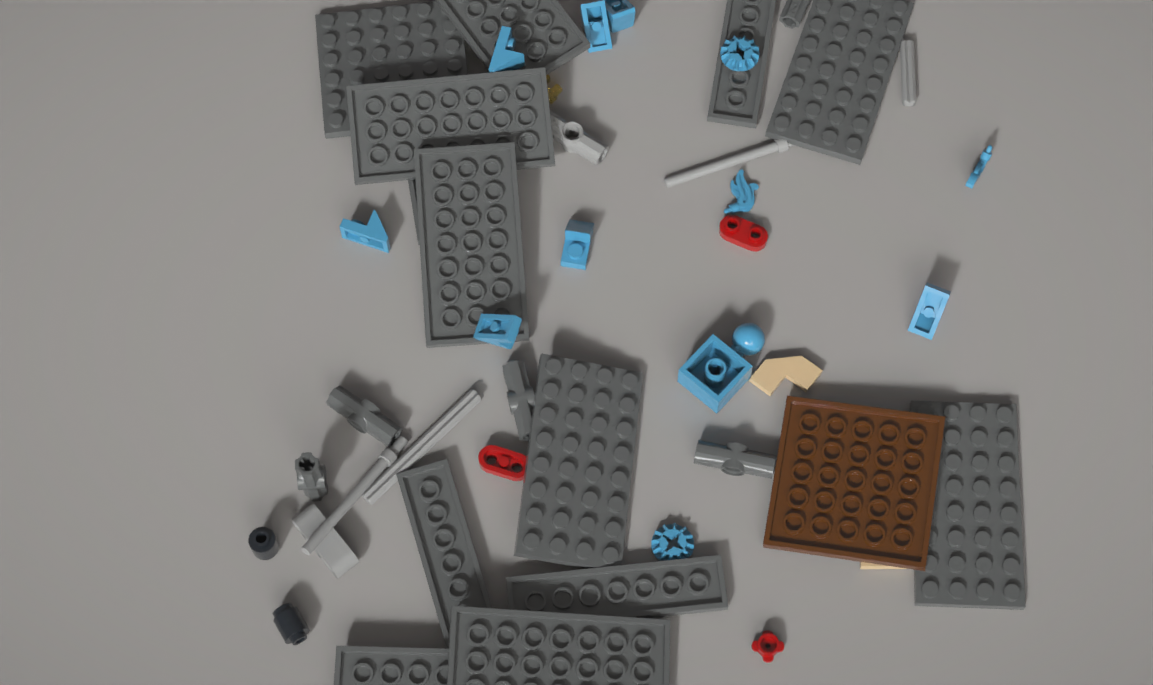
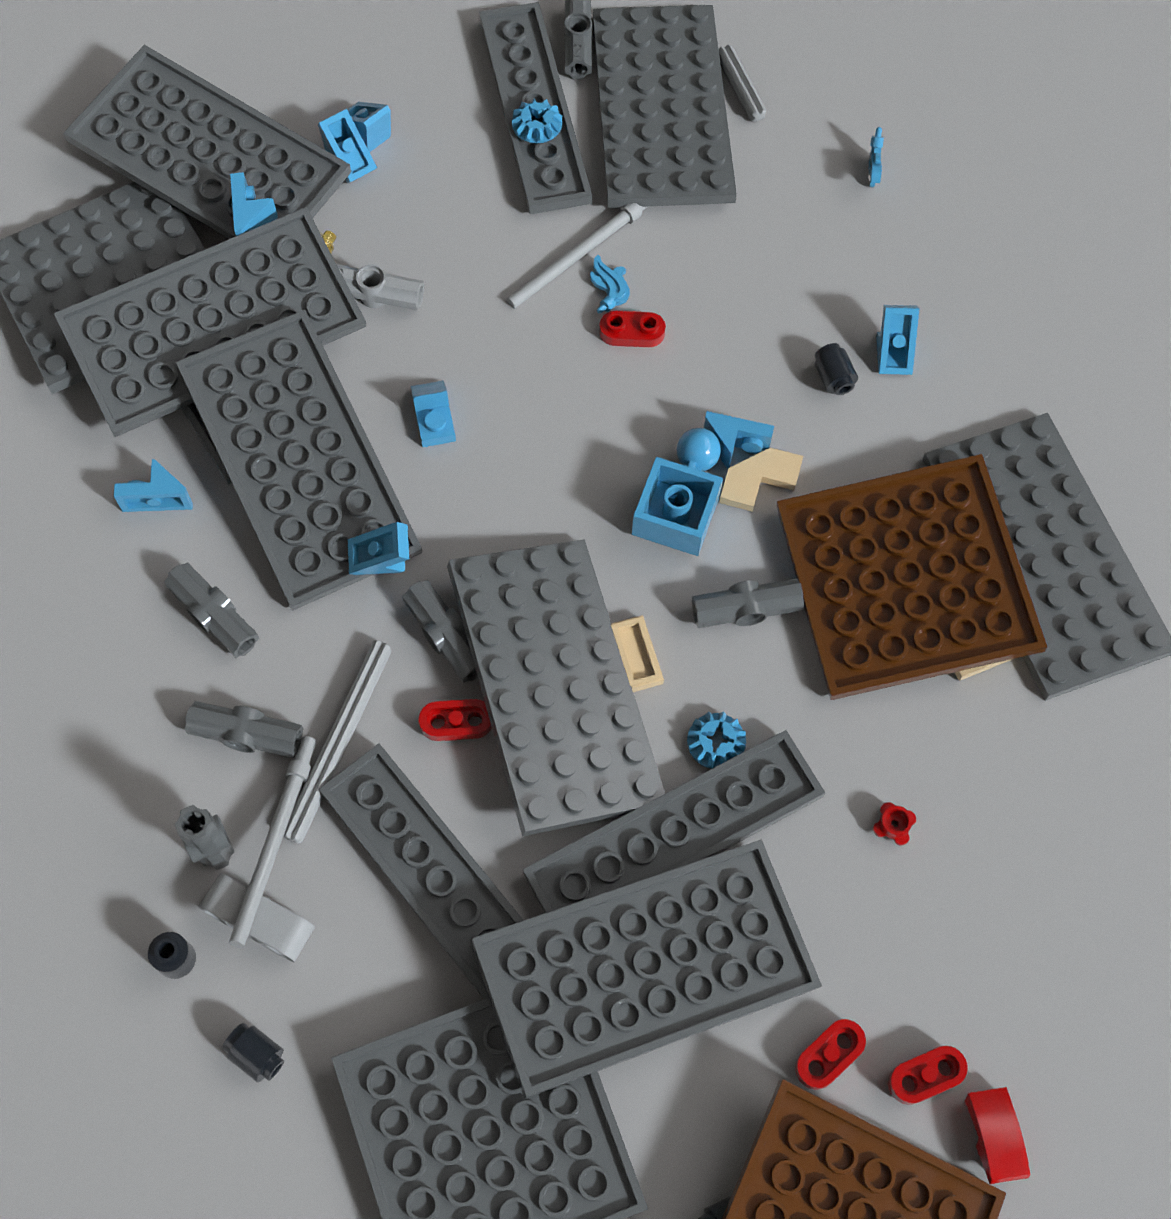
camera: 25 degrees left, 0 degrees up
(374, 327) = (211, 610): none -> dark grey piece
(644, 465) = (637, 653): none -> tan tile
(779, 335) = (738, 433): none -> dark azure slope
(874, 316) = (835, 369): none -> black brick

